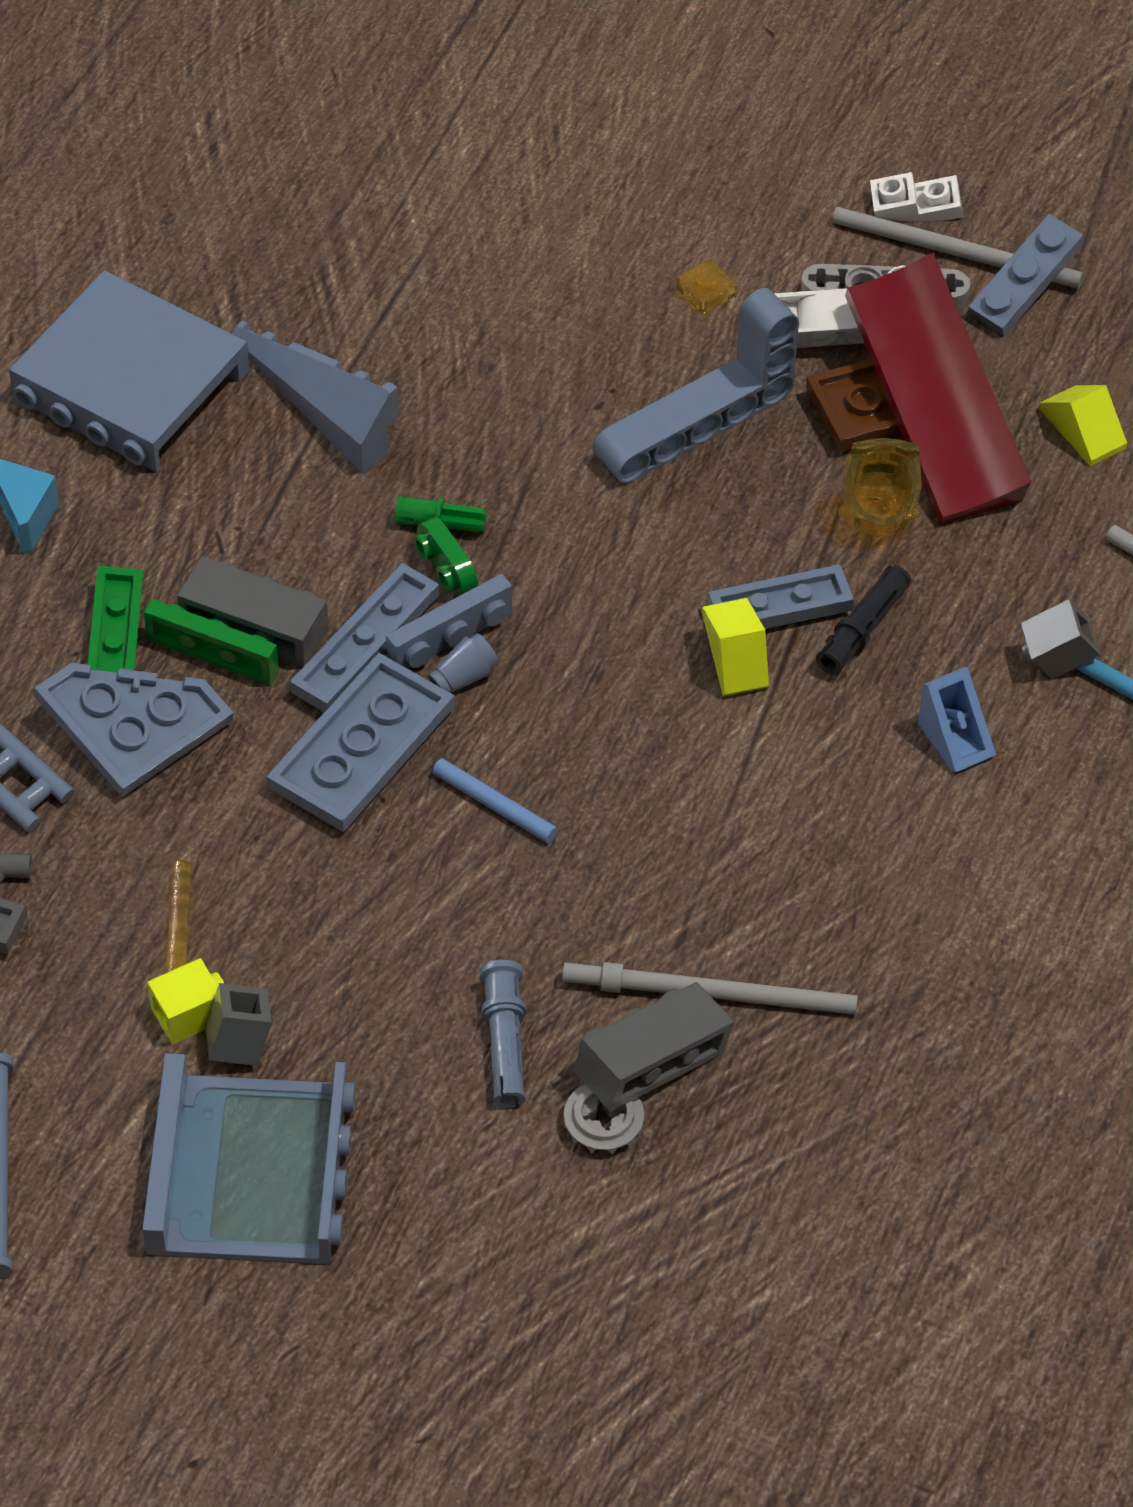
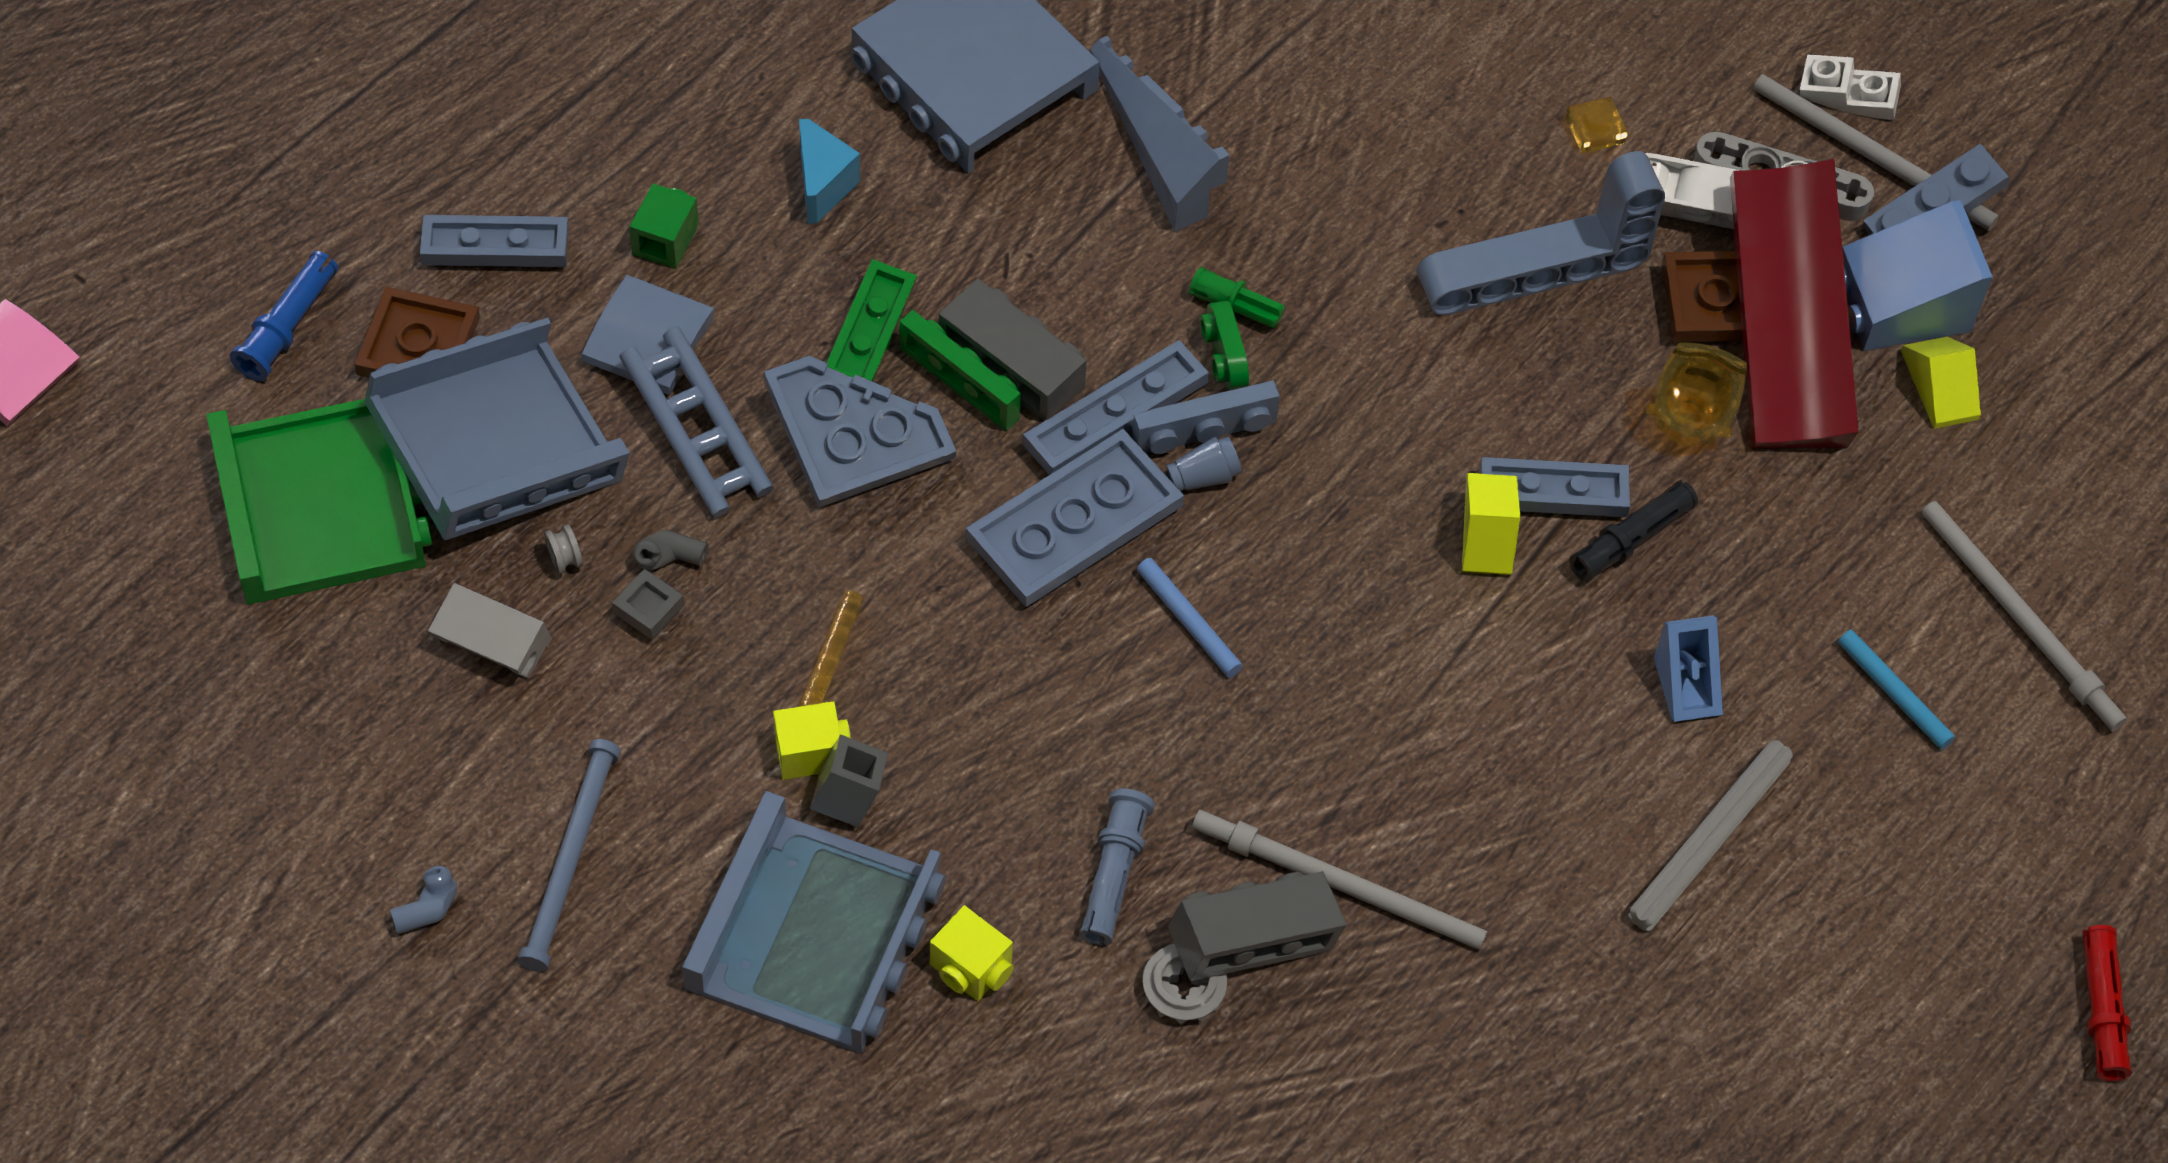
camera: 15 degrees right, 5 degrees up
(403, 1146) = (971, 955): none -> neon yellow brick
(1022, 860) = (1710, 835): none -> light grey axle
(1037, 340) = (1916, 279): none -> medium blue slope
(1059, 639) = (1830, 611): dark grey brick -> none

